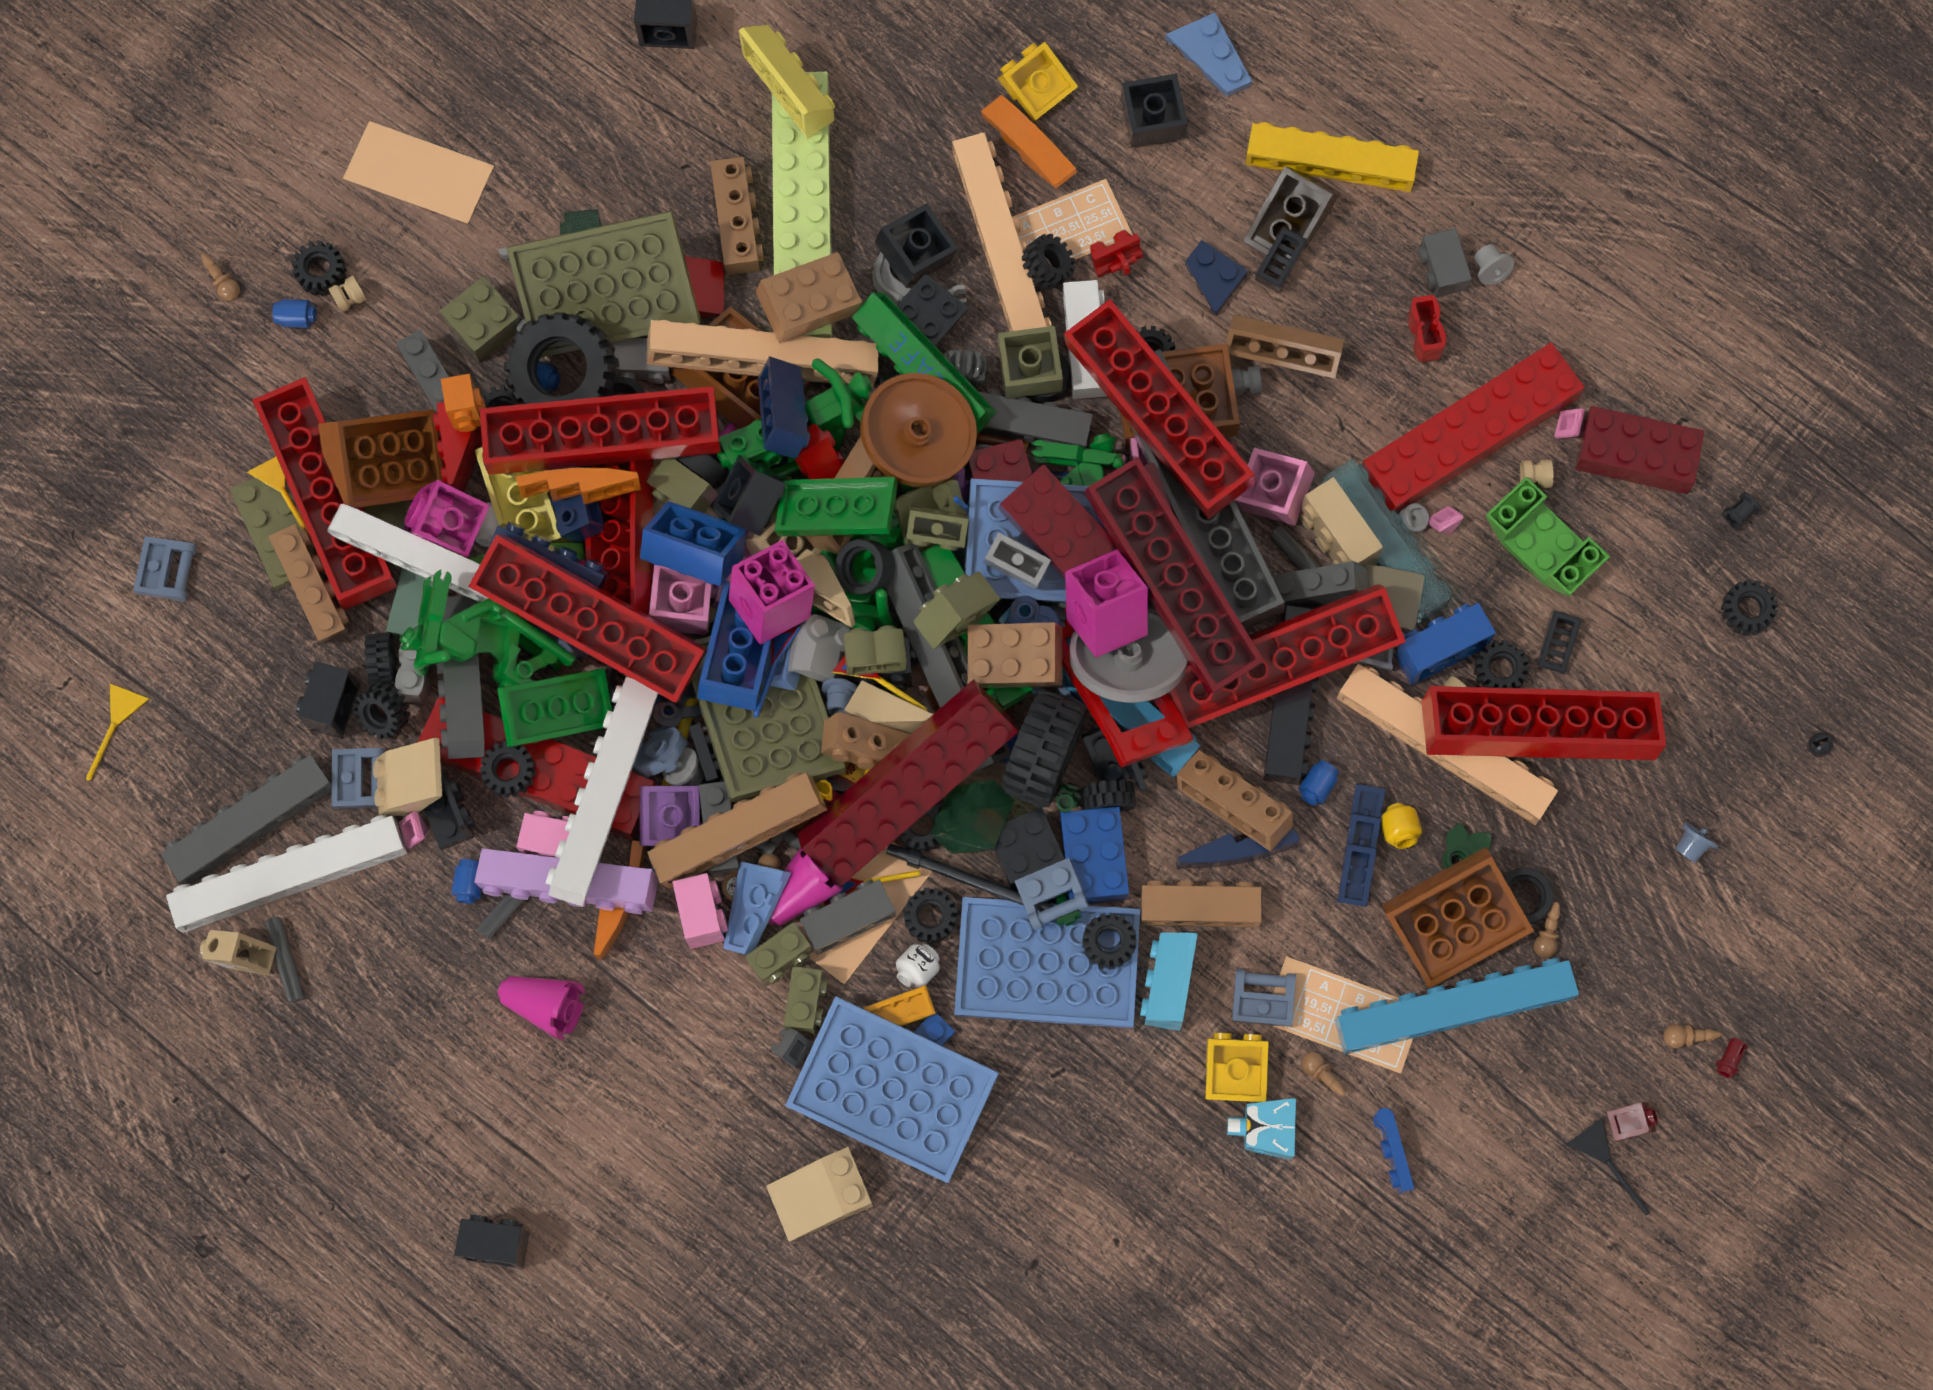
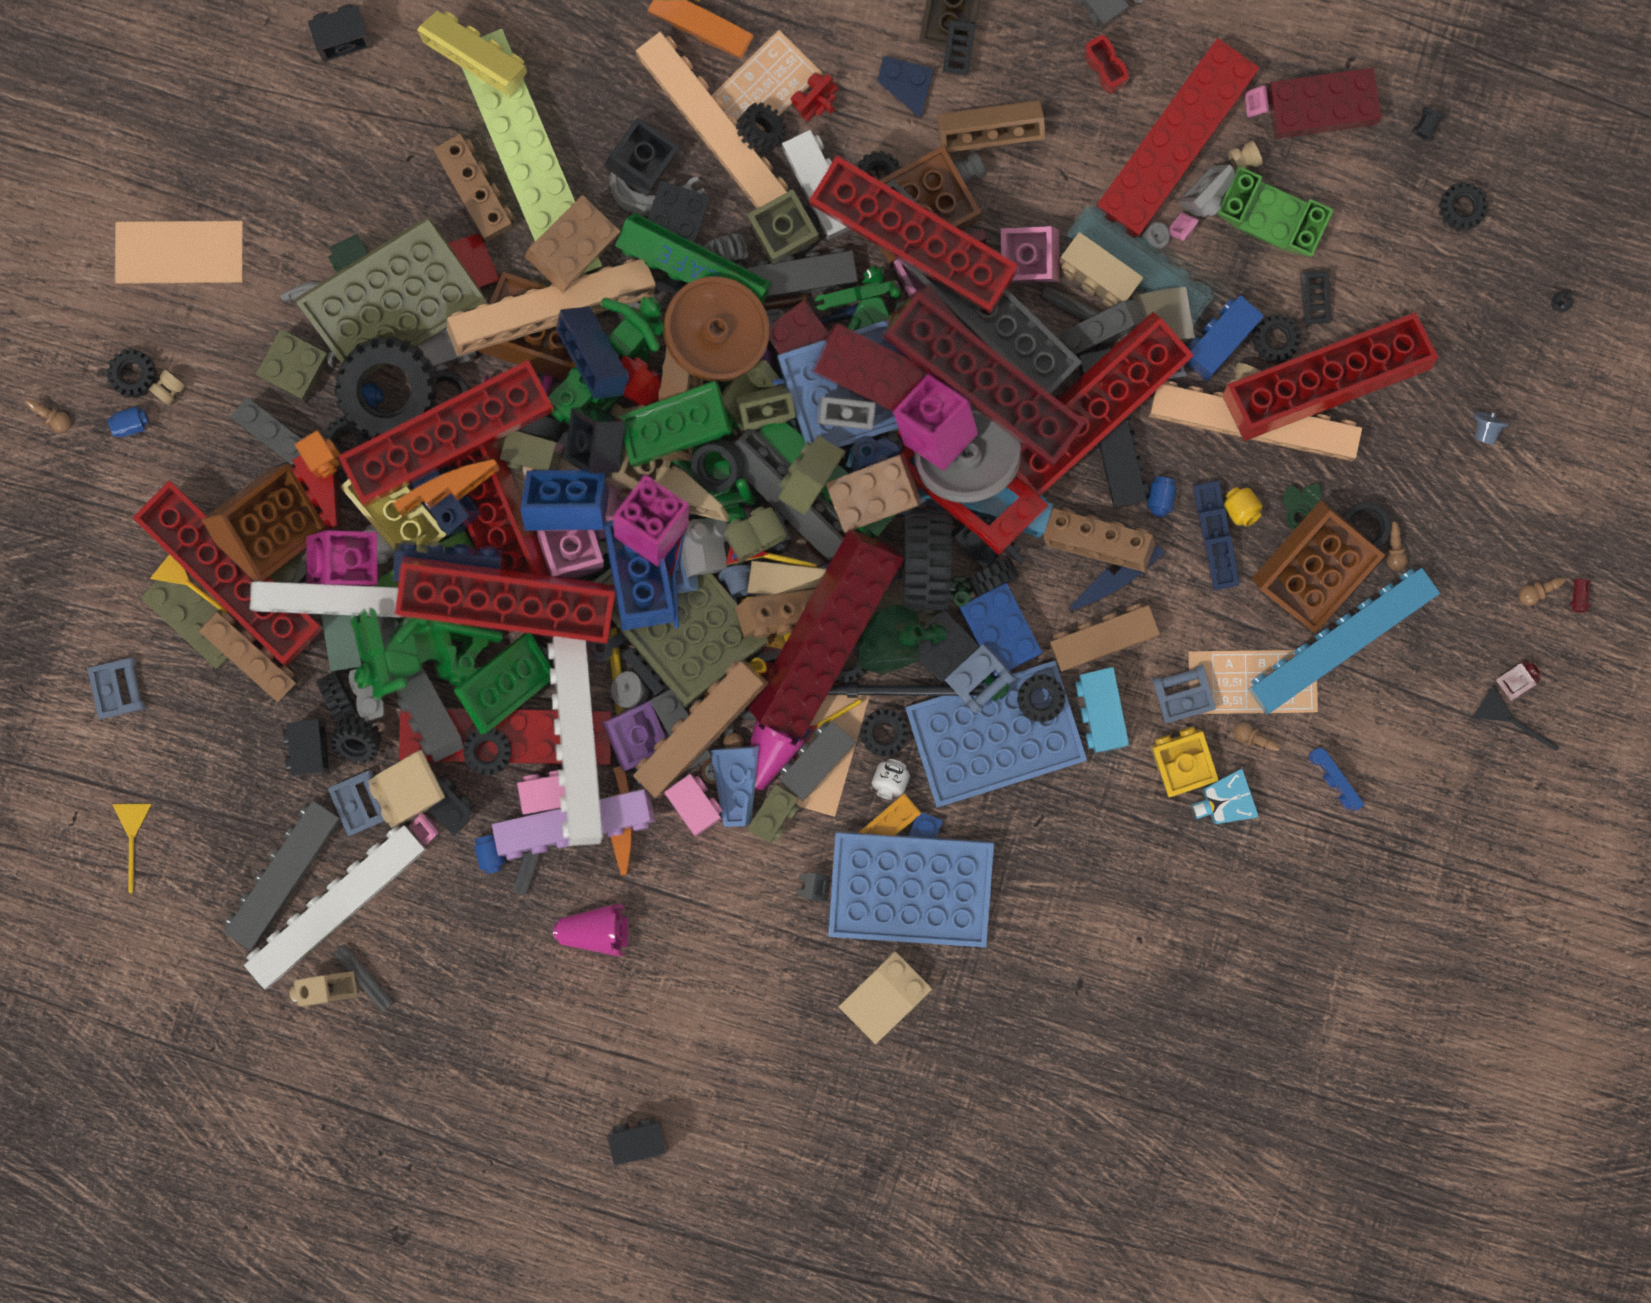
camera: 25 degrees left, 10 degrees up
(660, 752) = (606, 684): sand blue plate -> none
(804, 998) = (808, 842): olive brick -> none
(1001, 815) = (914, 633): none -> dark green bar
(1480, 495) = (1207, 191): none -> light grey slope

